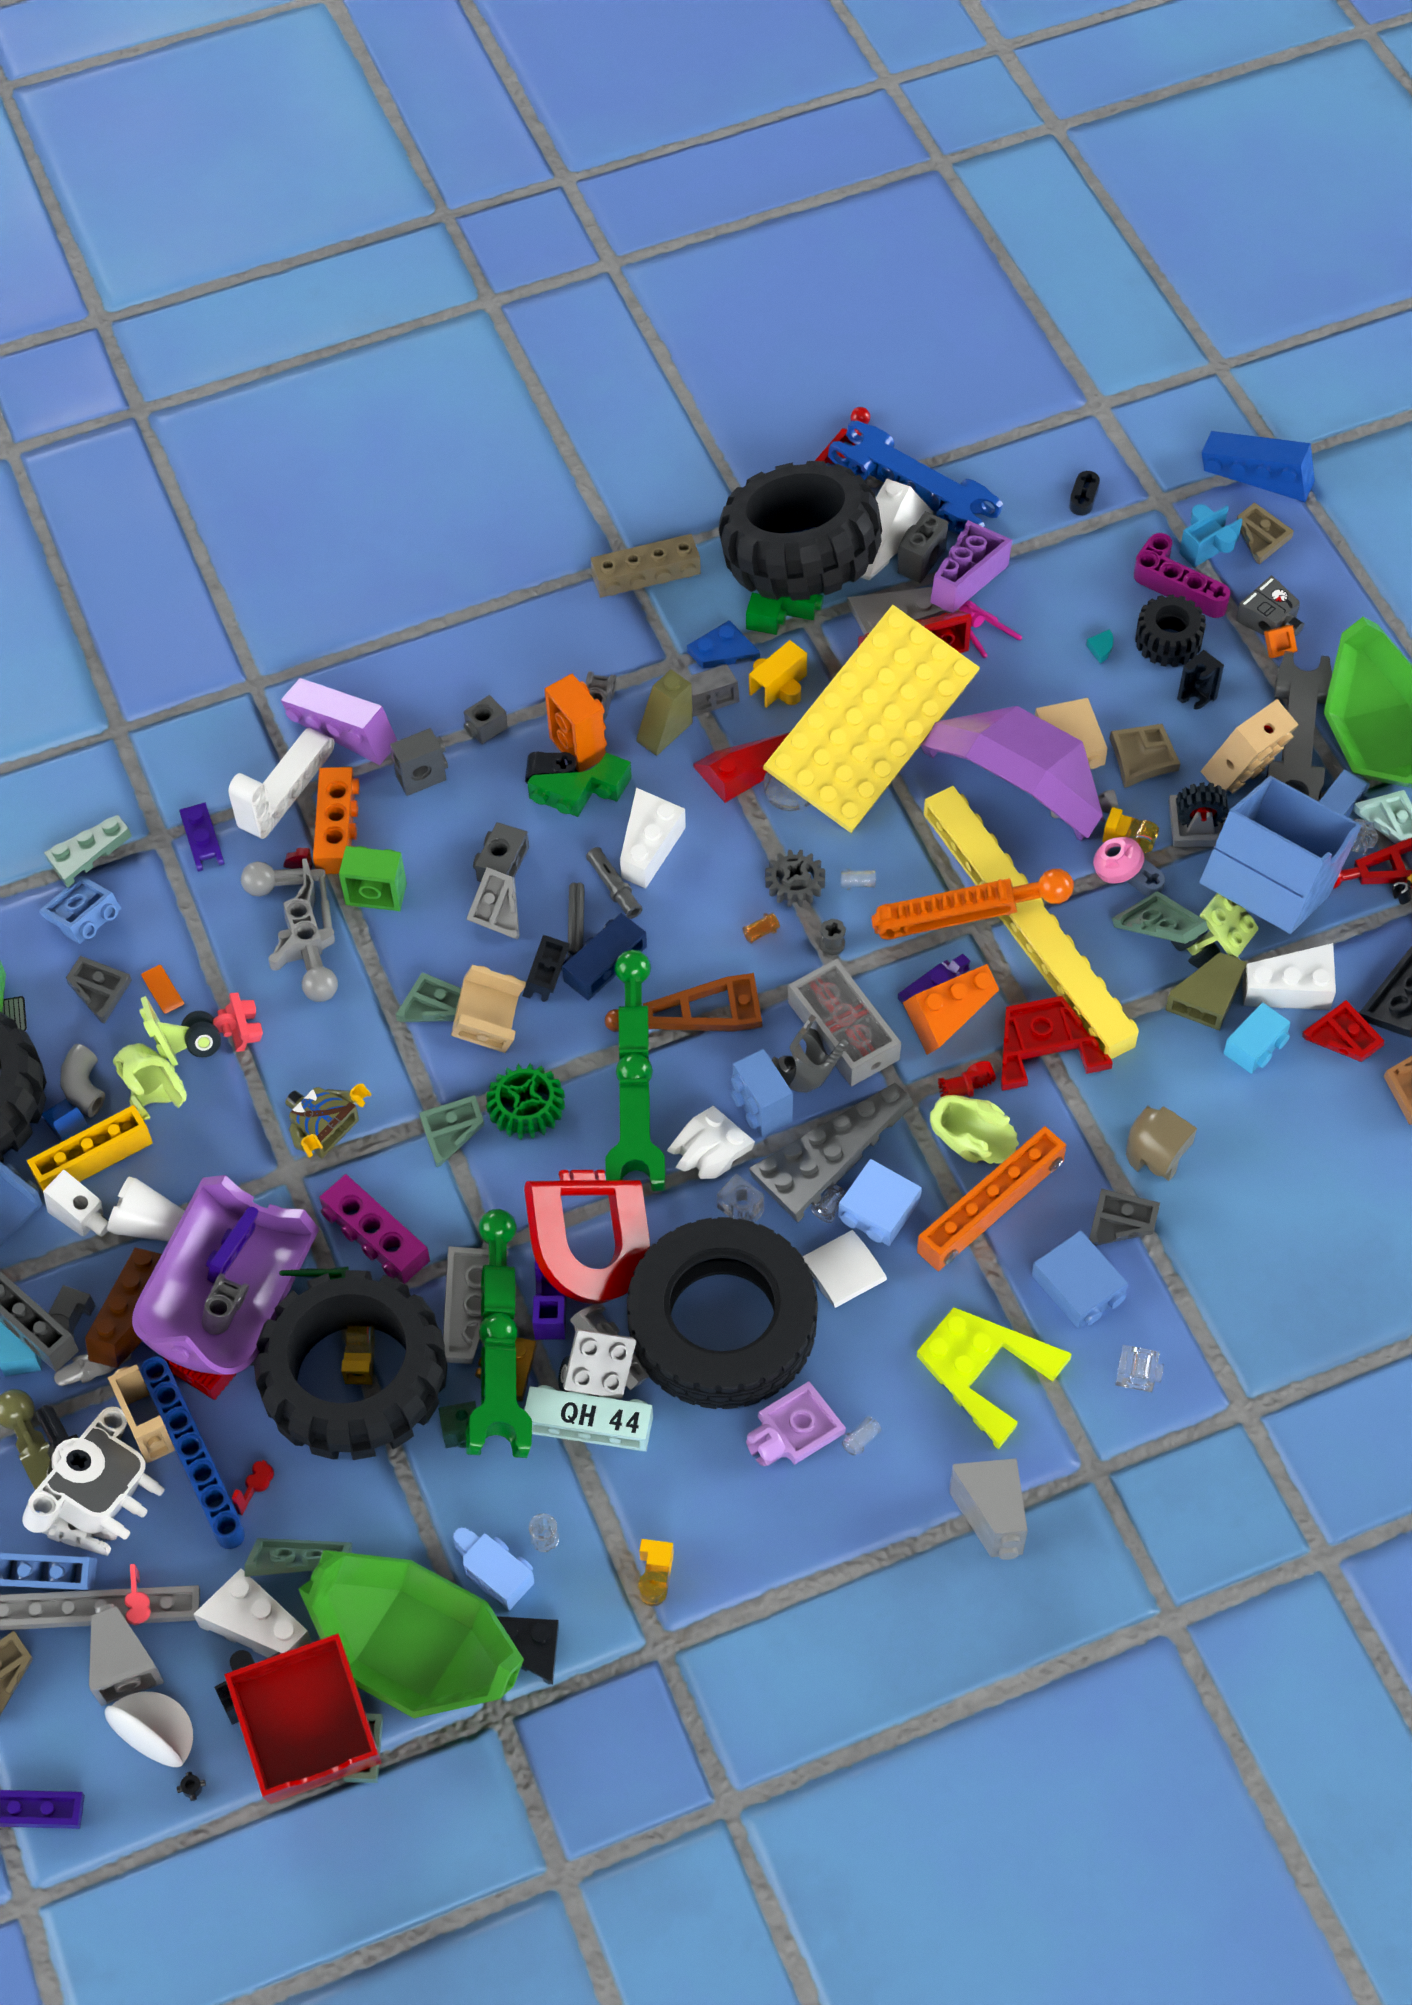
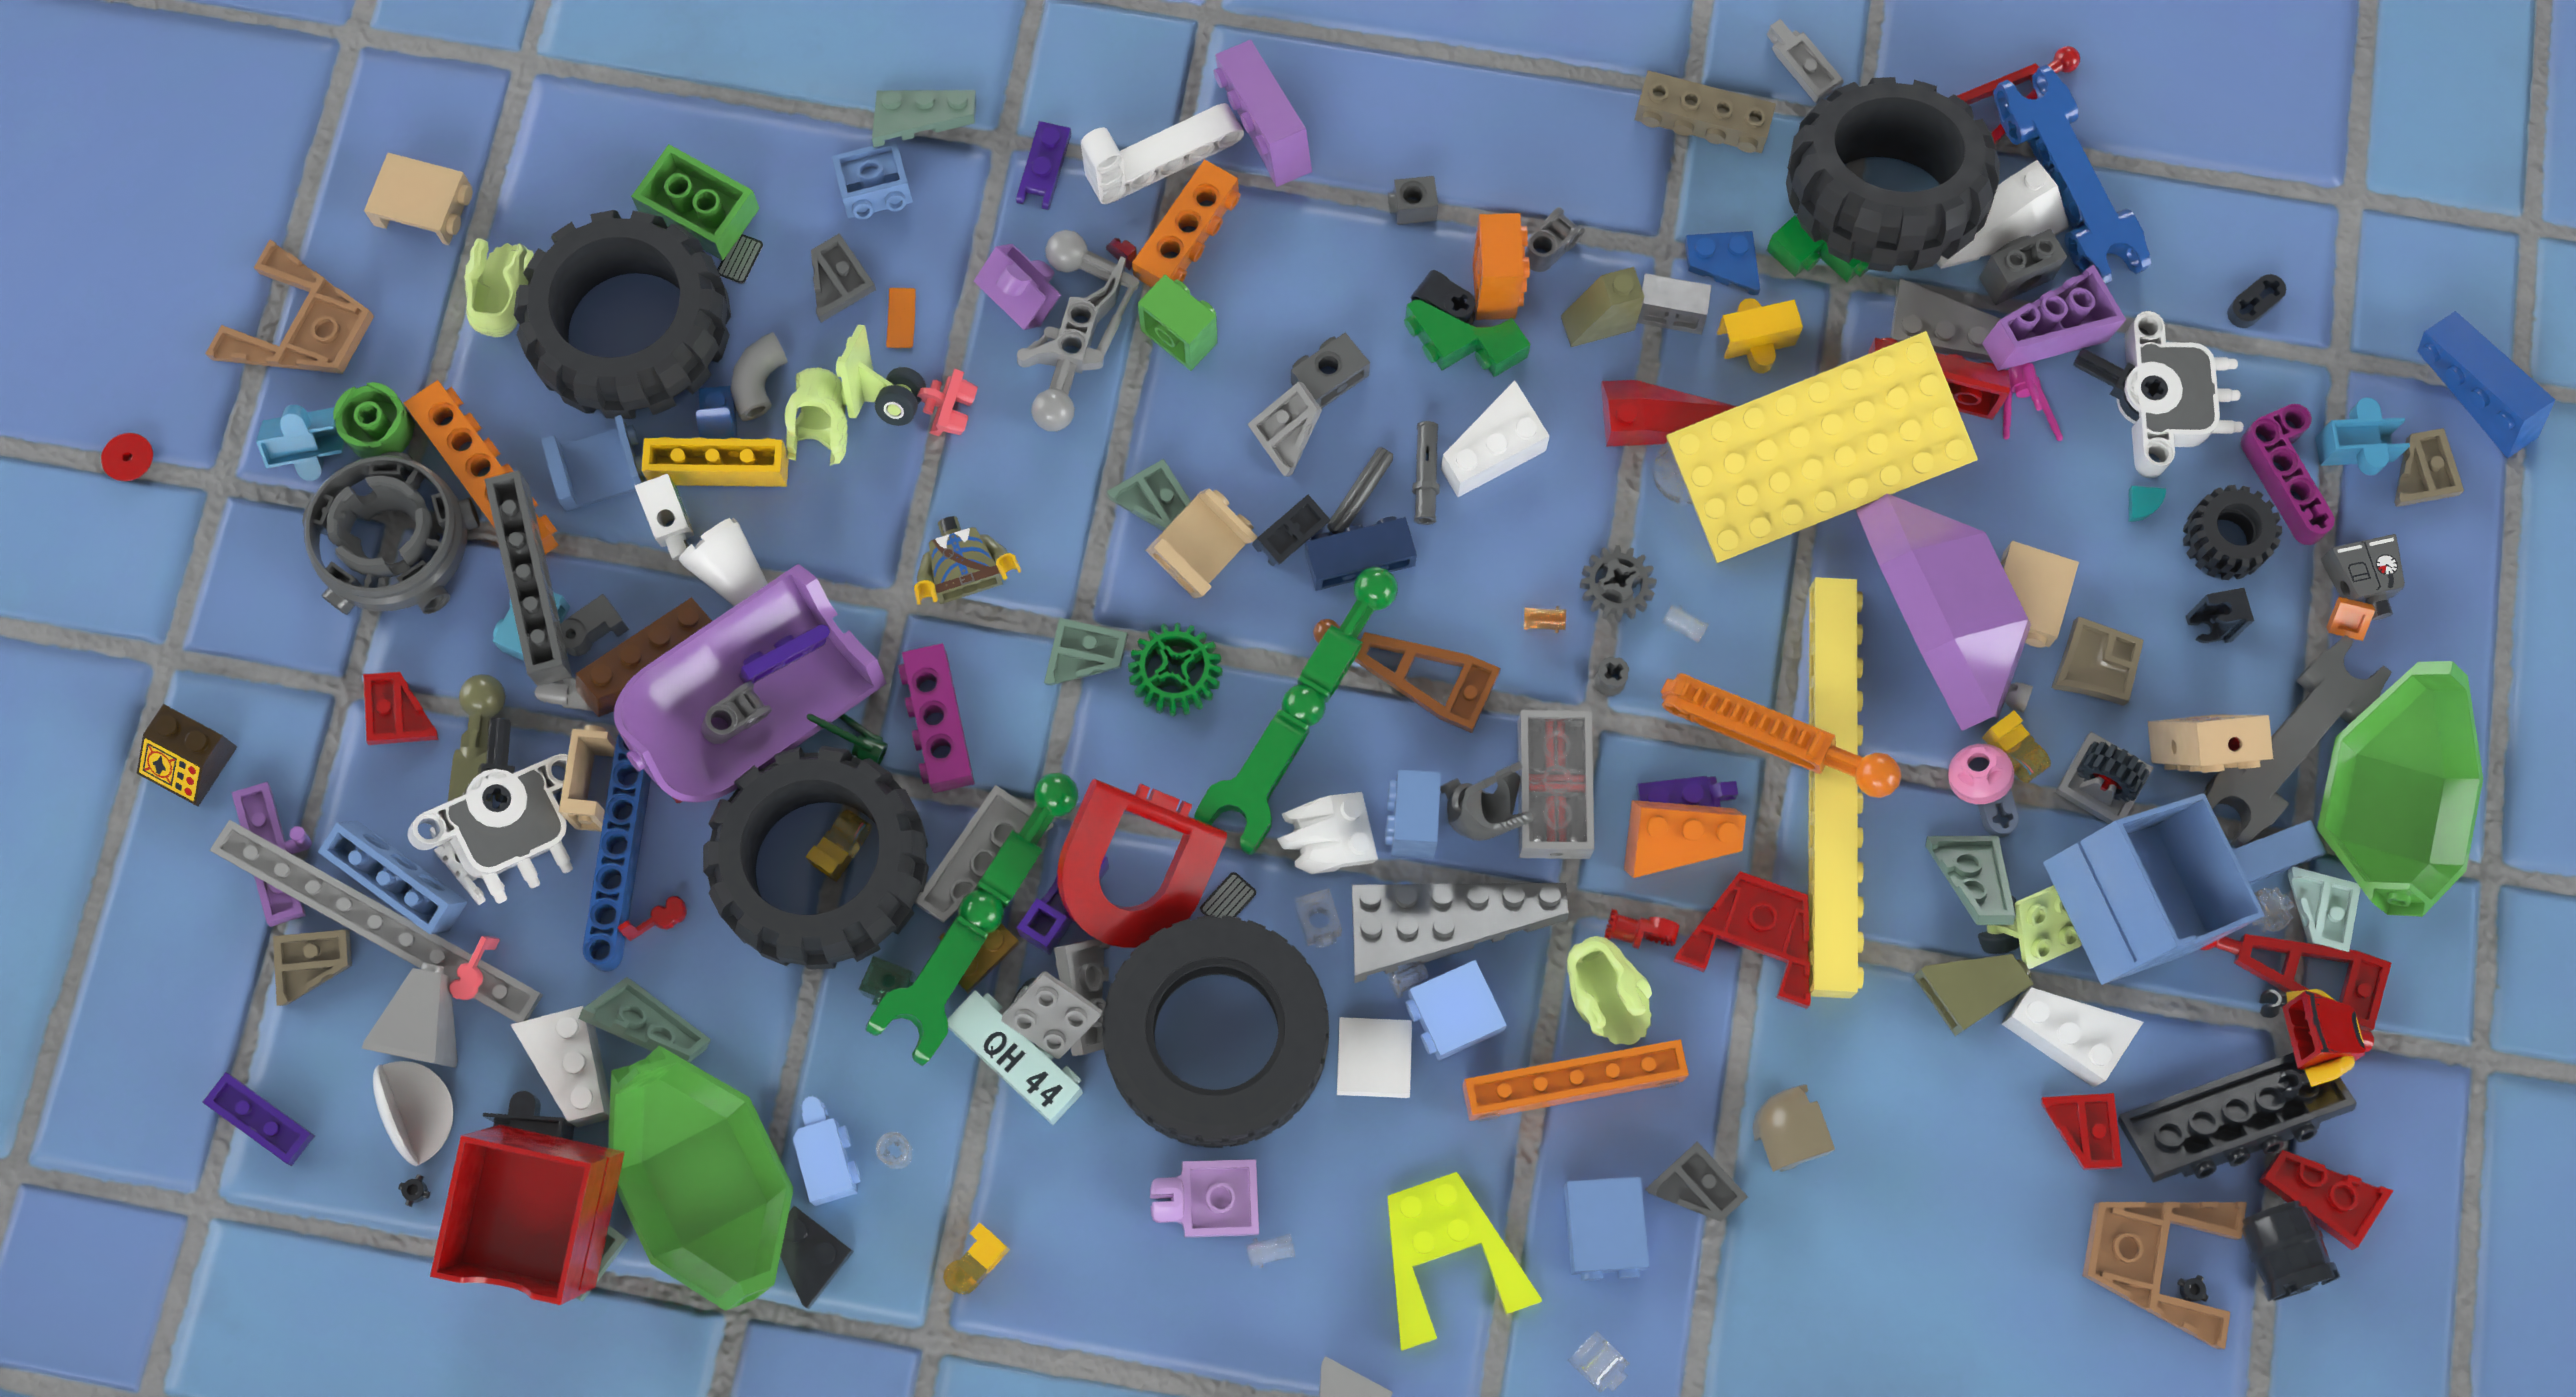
camera: 30 degrees right, 15 degrees up
(238, 918) = (1018, 285): none -> medium lavender piece
(419, 761) = (1311, 212): dark grey brick -> none
(666, 1222) = (1229, 897): none -> light grey sticker
(689, 503) = (1804, 61): none -> light grey hinge
(1066, 573) = (2181, 387): none -> piece
(1257, 1038) = (1986, 1075): medium azure brick -> none

